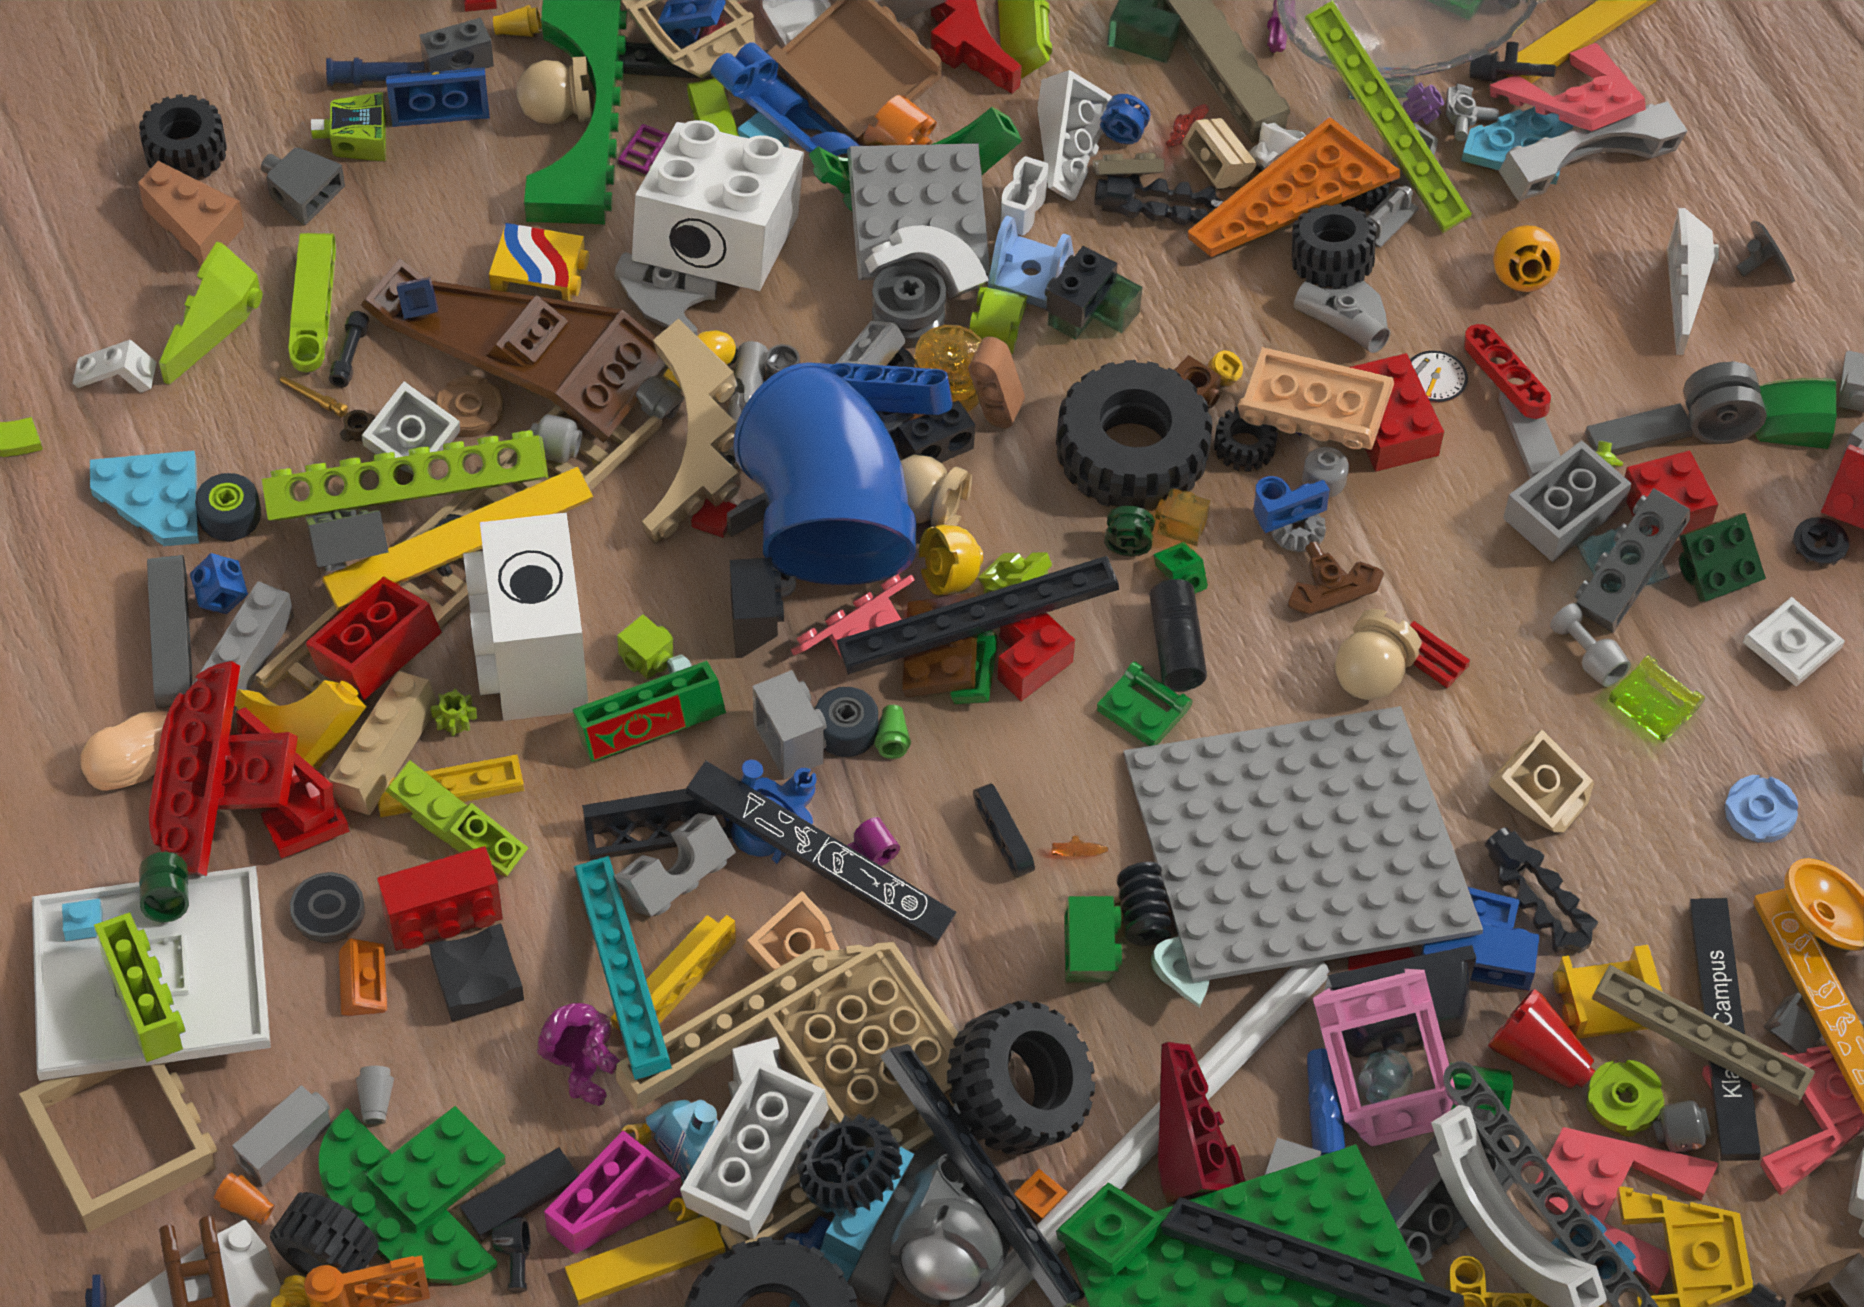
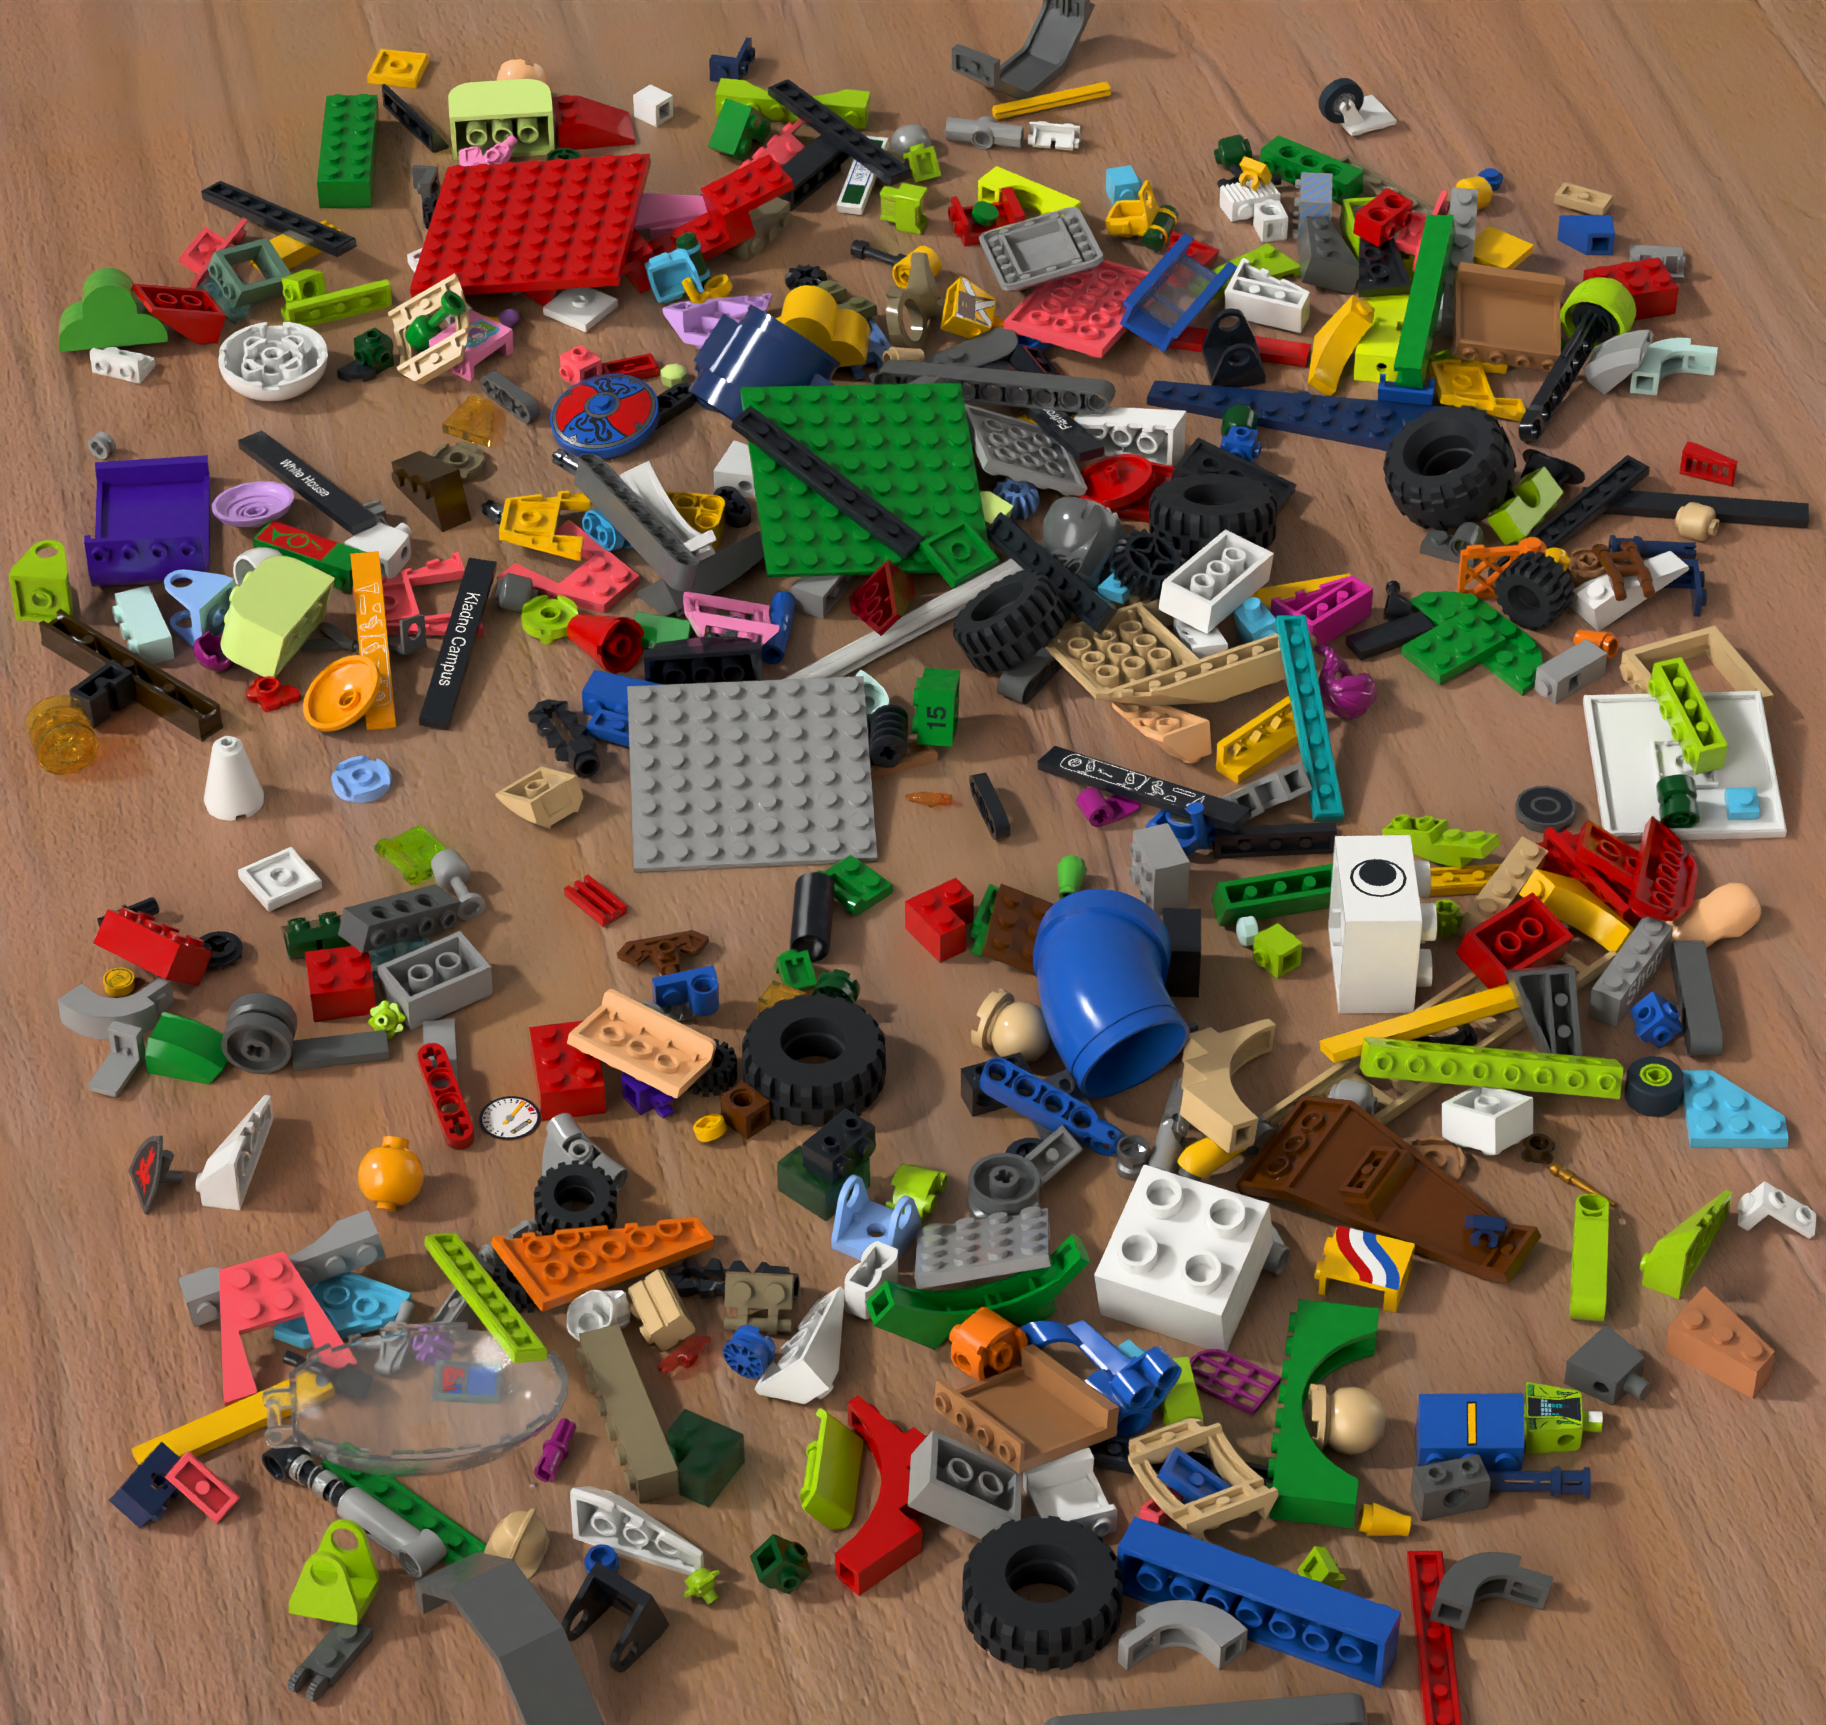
camera: 170 degrees left, 15 degrees down
(179, 119) = (1734, 1434): black tyre -> none
(342, 370) = (1556, 1200): black bar -> none
(362, 978) = (1514, 765): orange slope -> none
(374, 1093) = (1501, 693): light grey cone -> none
(440, 898) = (1453, 780): red brick -> none
(476, 973) = (1423, 749): black brick -> none
(850, 721) = (1110, 874): black wheel -> none
(938, 249) = (983, 1205): white arch -> none
(950, 559) = (994, 973): yellow cylinder -> none
(952, 351) = (973, 1125): clear yellow wheel -> none
(977, 614) = (954, 916): black tile -> none
(996, 382) = (935, 1091): nougat beam -> none
(1013, 569) = (941, 970): lime cylinder -> none
(1376, 655) = (648, 877): tan tile -> none
(1579, 984) = (536, 677): yellow panel -> none
(1703, 1035) = (482, 621): dark tan tile -> none

